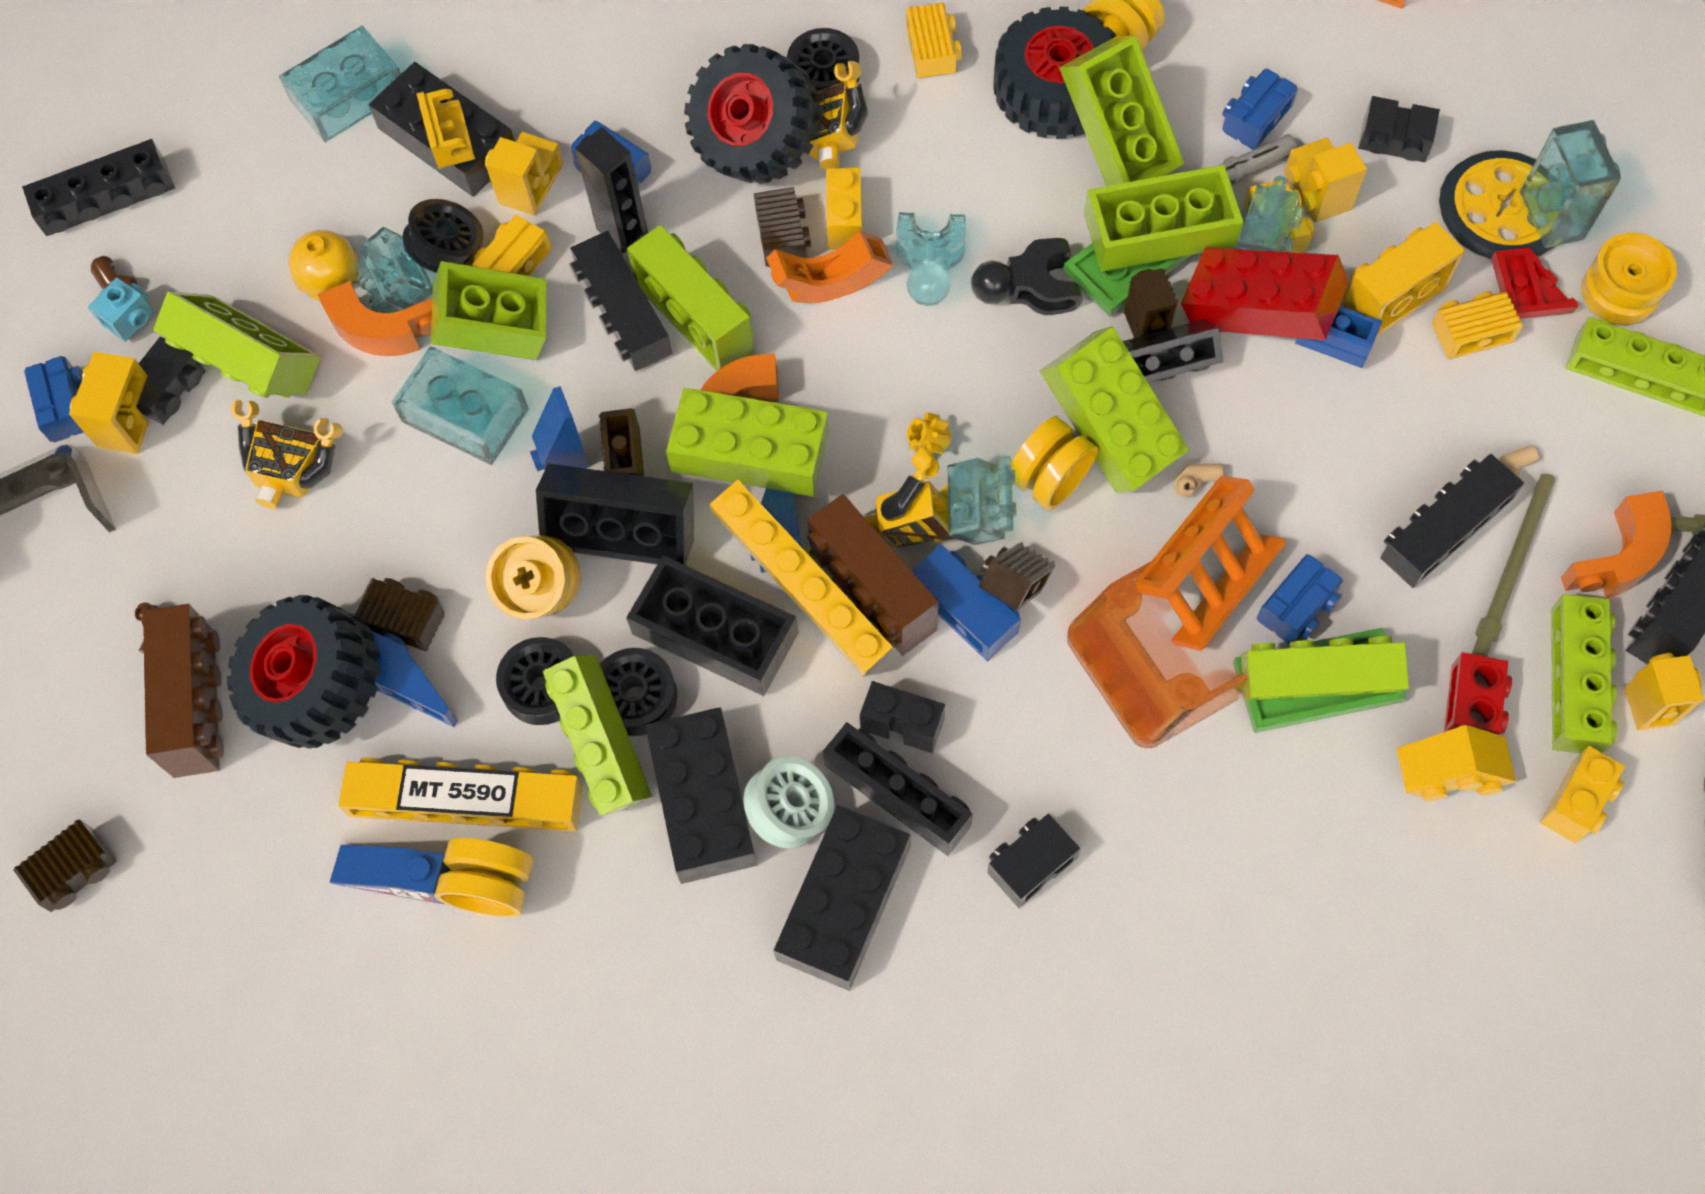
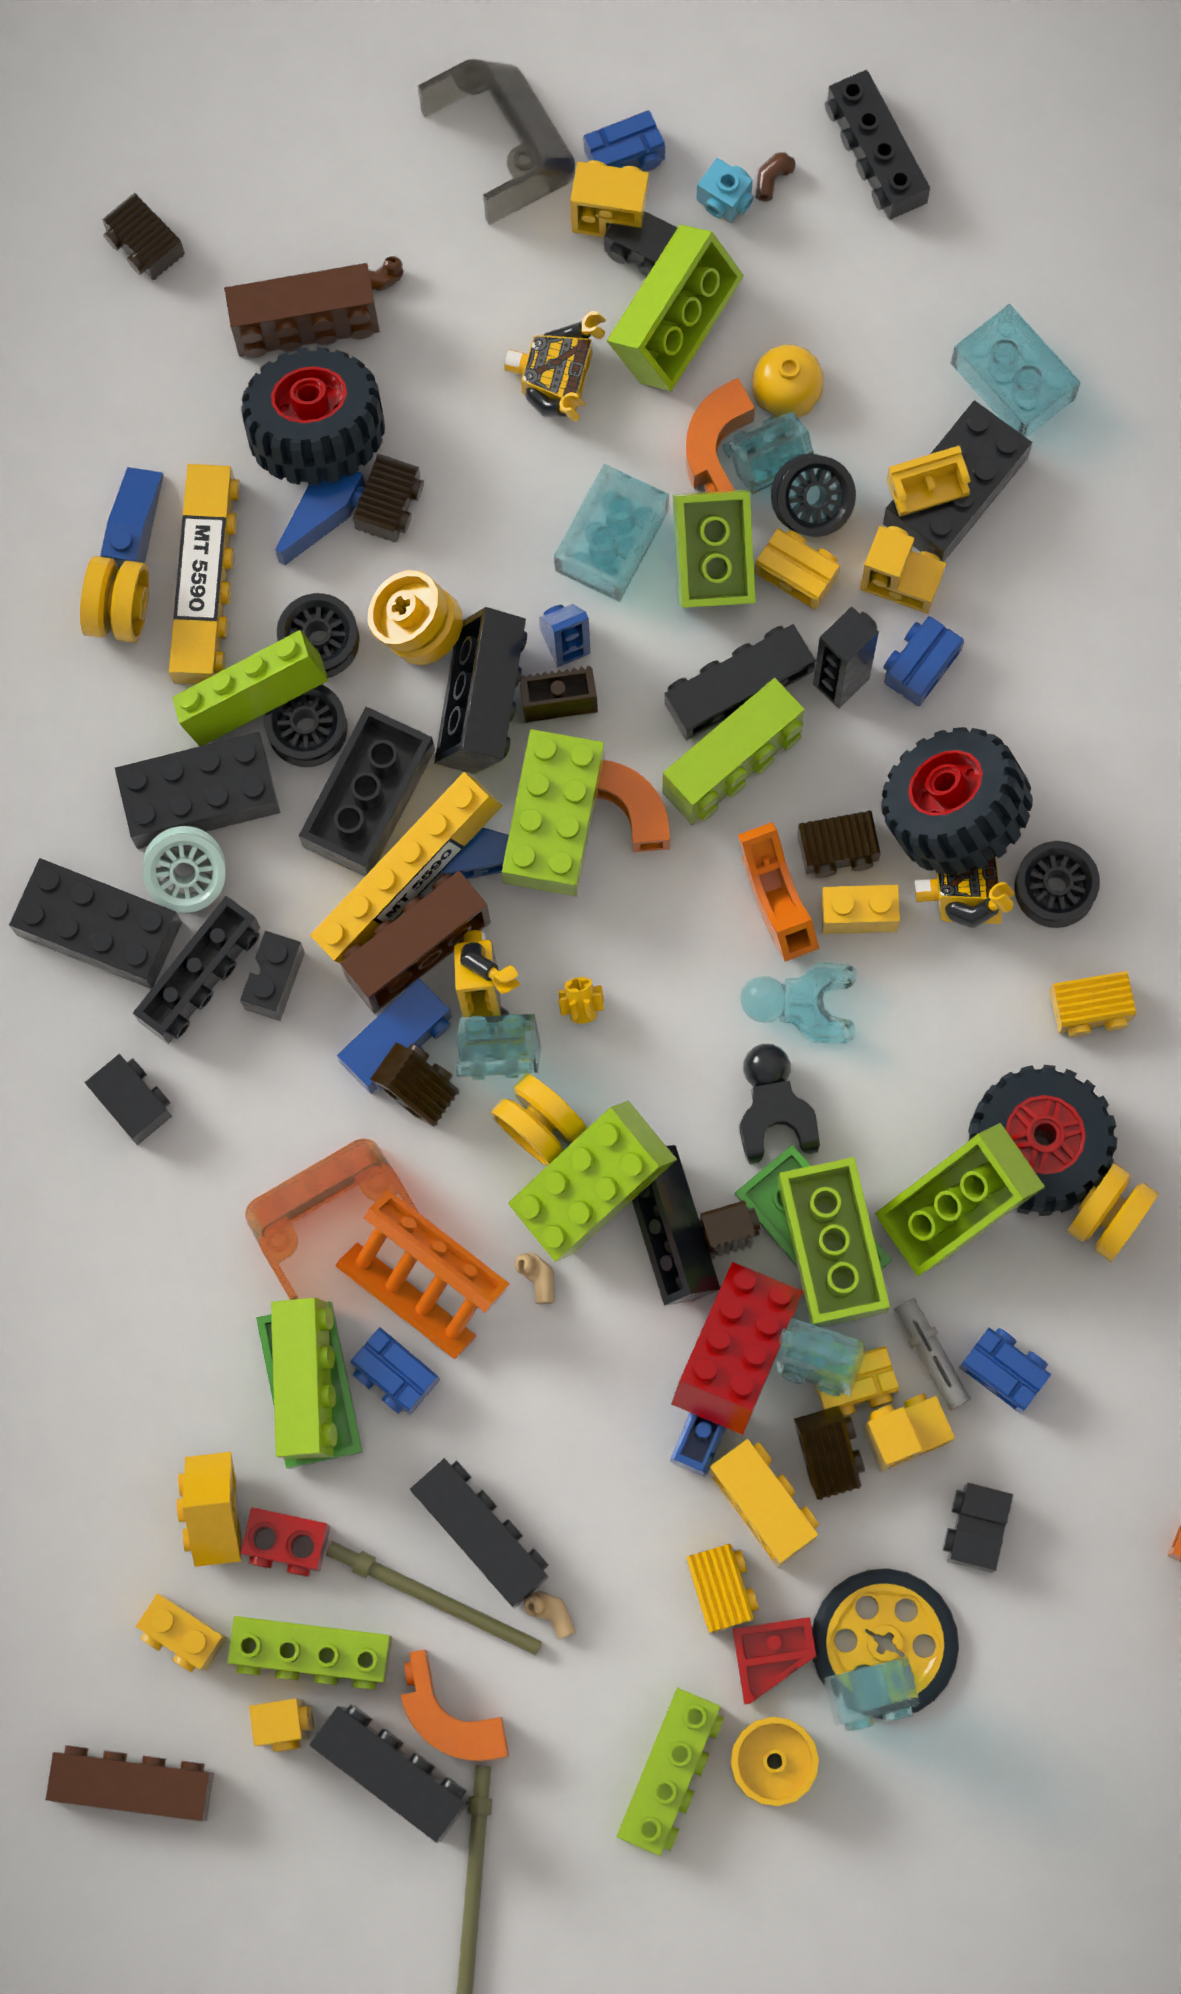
camera: 90 degrees right, 10 degrees up
(1348, 232) = (829, 1453): none -> dark brown brick

